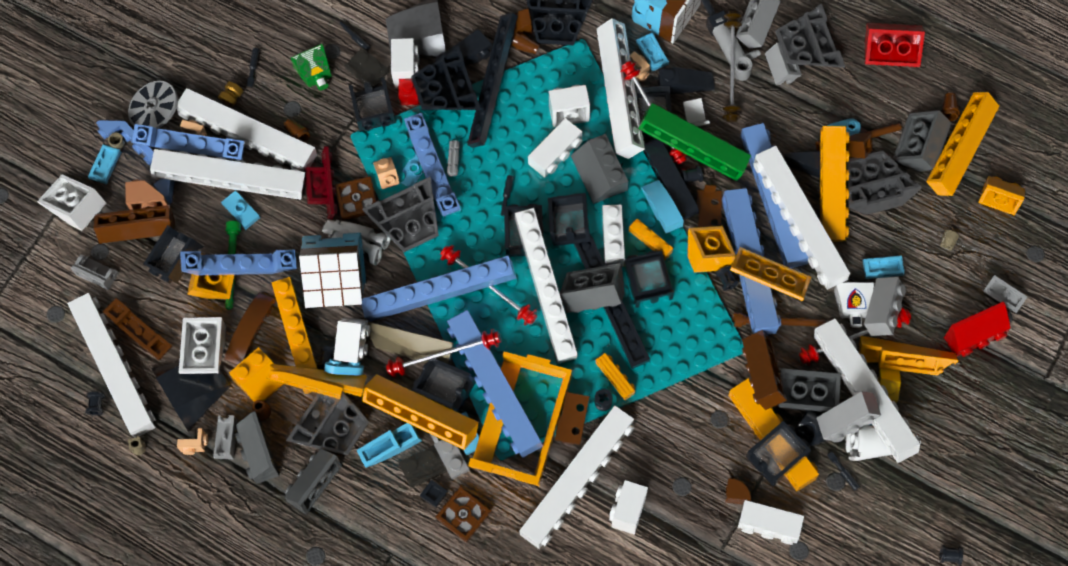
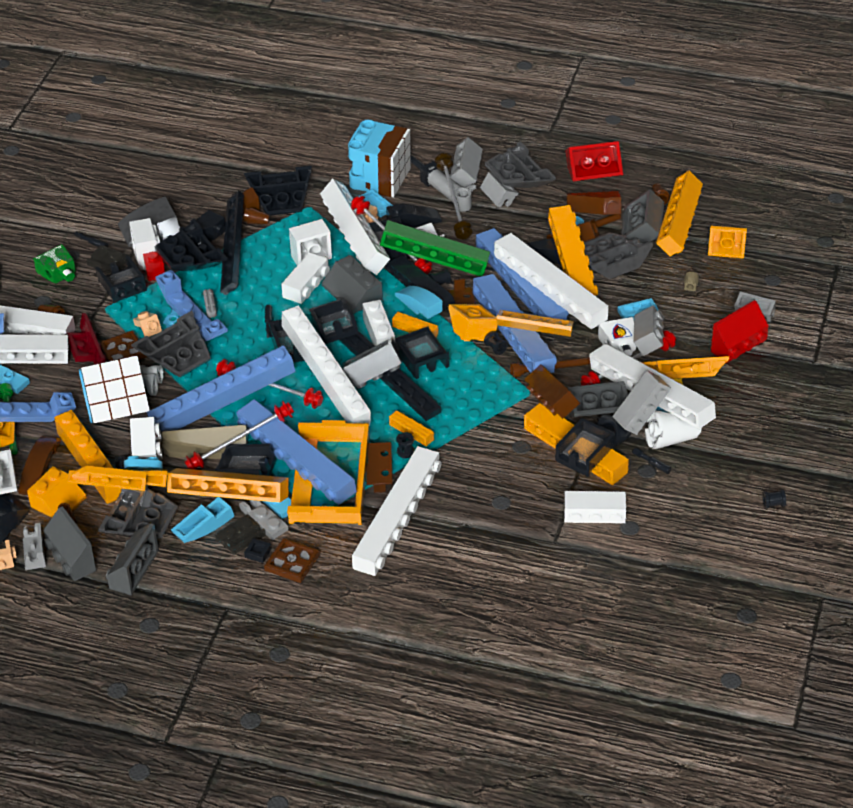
camera: 15 degrees left, 25 degrees down
(629, 506) = (454, 517): white brick -> none
(736, 492) = (554, 491): reddish brown brick -> none
(883, 108) = (595, 202): none -> reddish brown slope

